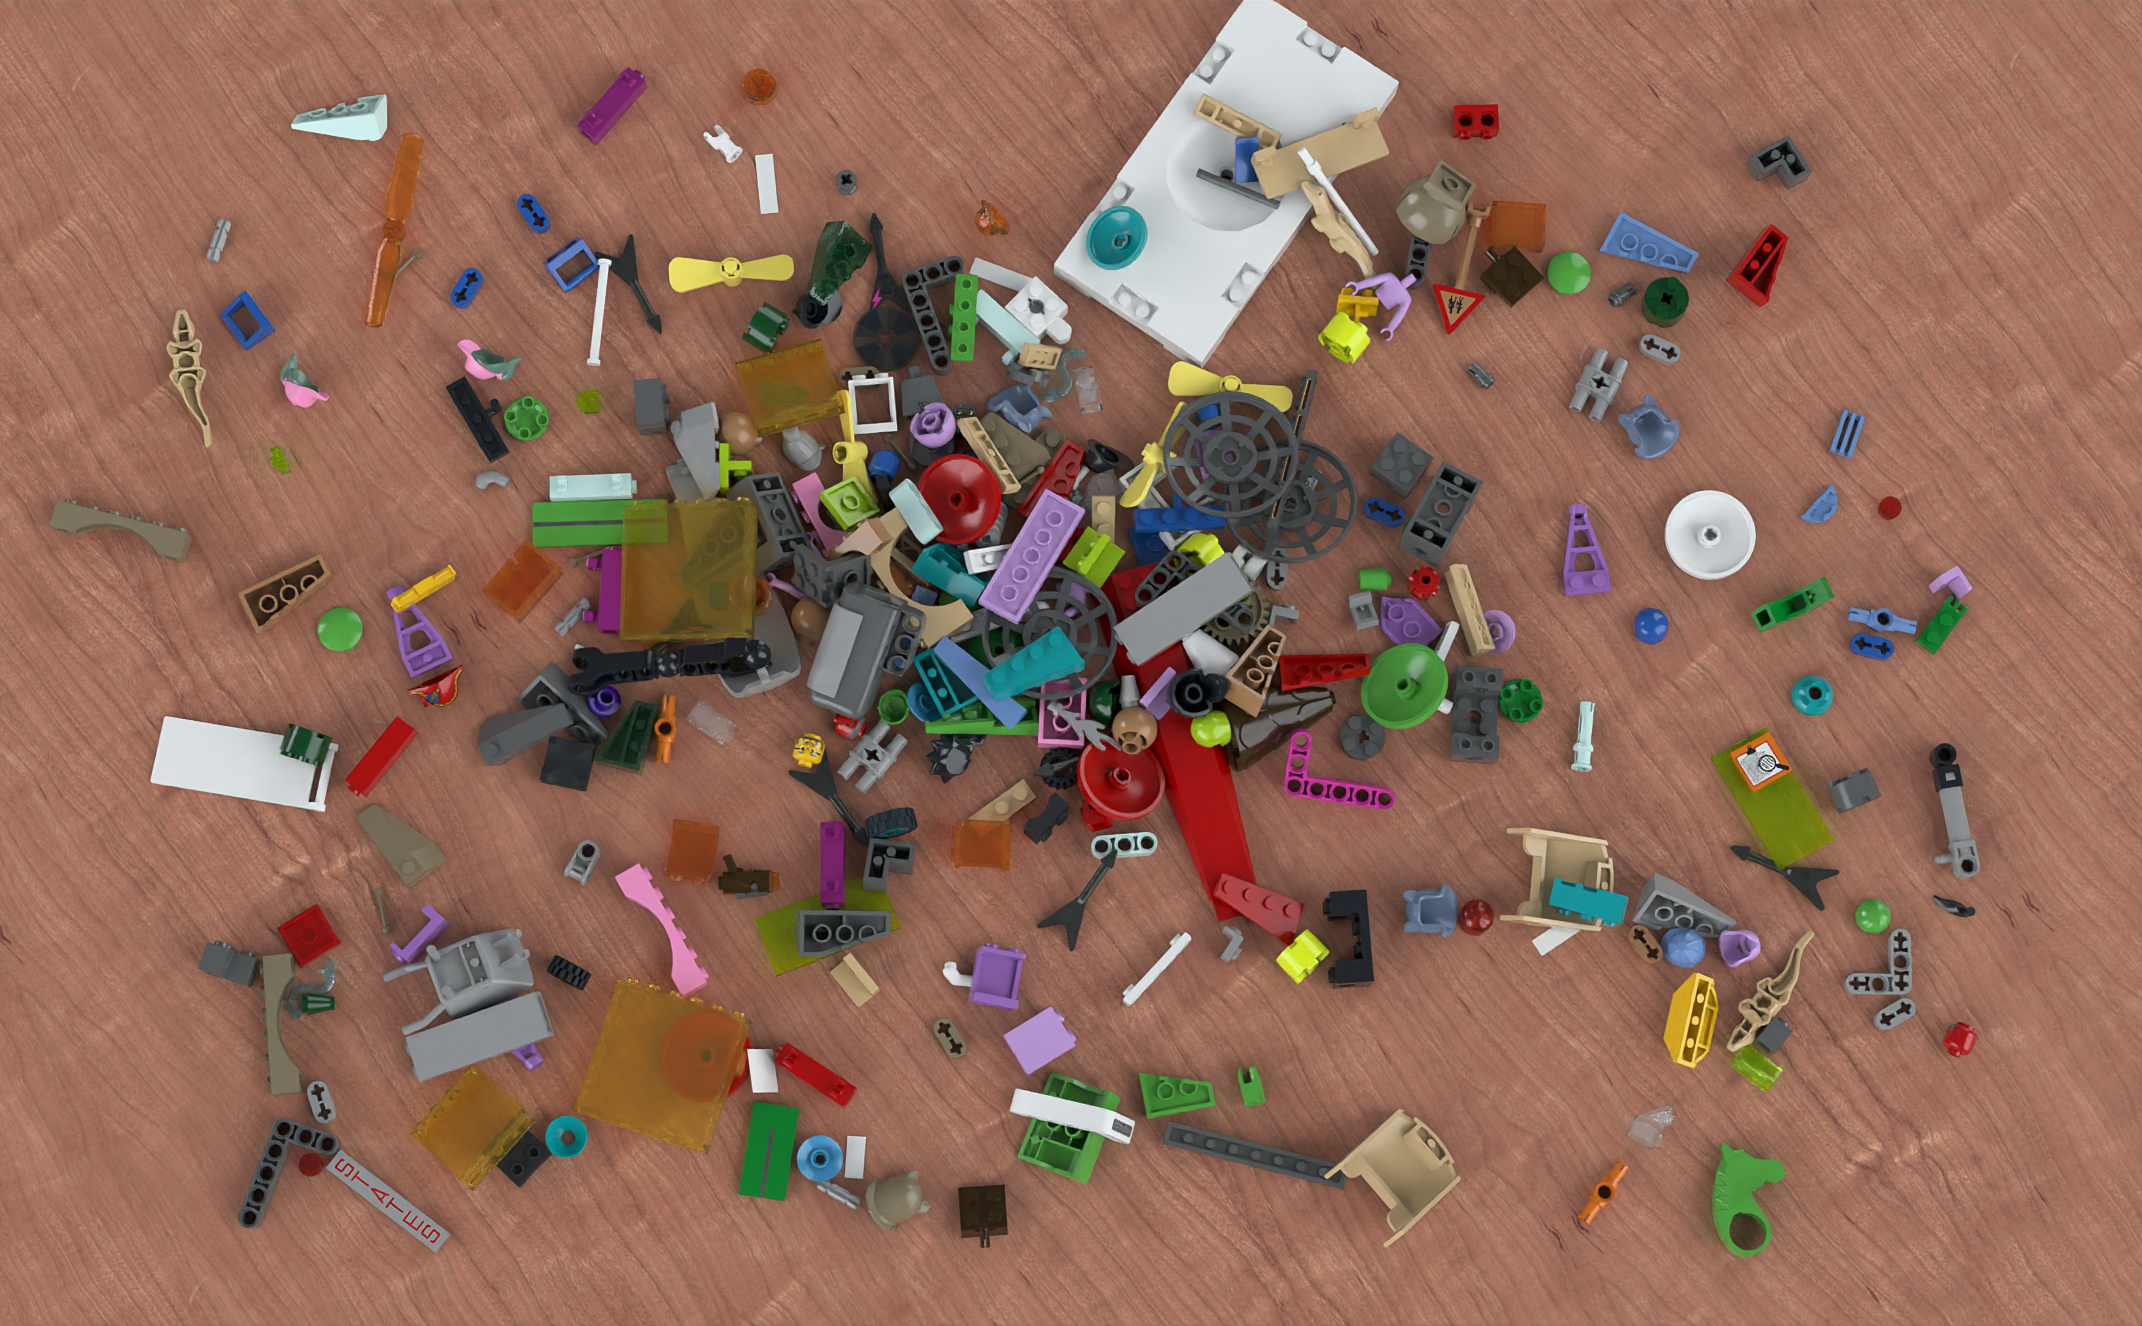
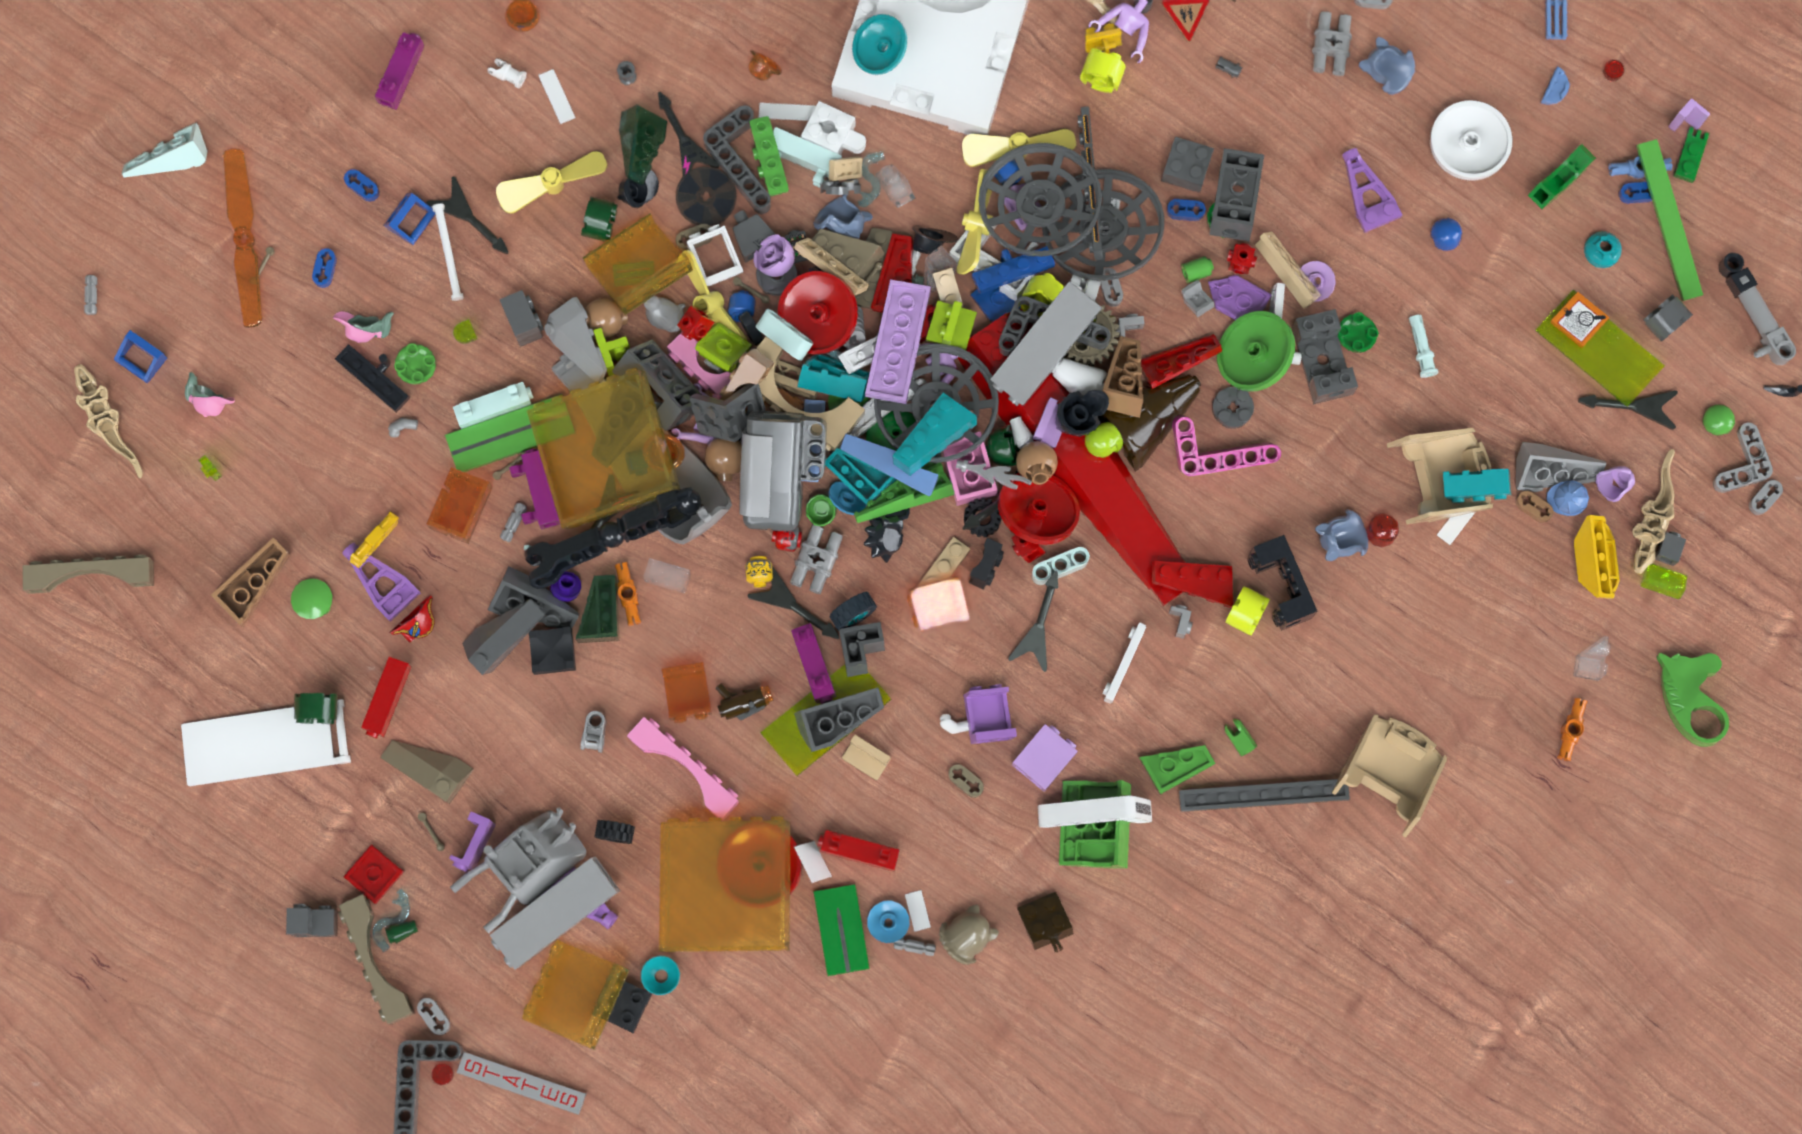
camera: 15 degrees left, 0 degrees up
(828, 470) = (695, 324): none -> red brick
(1892, 687) = (1669, 220): none -> bright green tile

